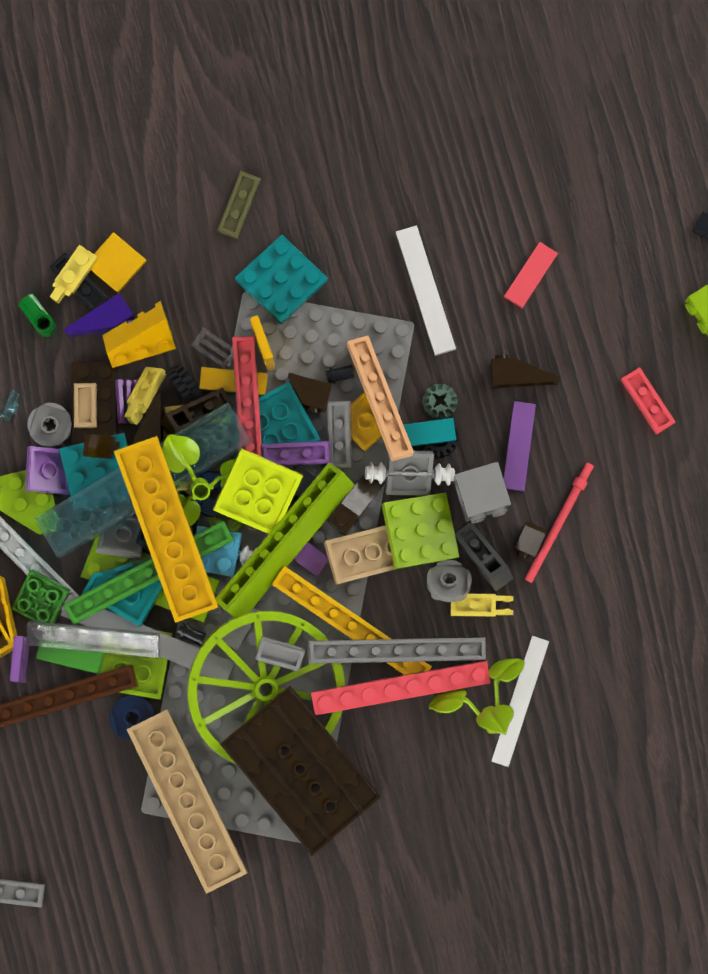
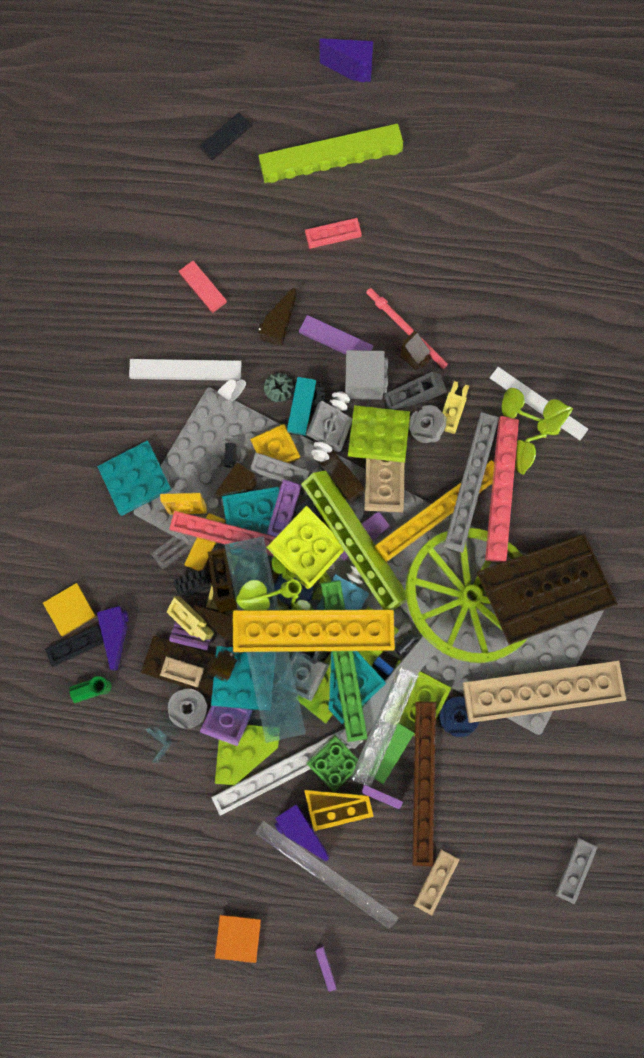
camera: 70 degrees left, 5 degrees down
(73, 273) = (65, 646): light yellow hinge -> none
(140, 338) = (142, 607): yellow wedge -> none
(160, 618) = (383, 666): none -> blue tile
(239, 205) = (59, 493): olive tile -> none
(280, 654) = (447, 572): light grey tile -> none
(380, 398) = (262, 427): light nougat plate -> none
(416, 351) = (232, 389): none -> white helmet

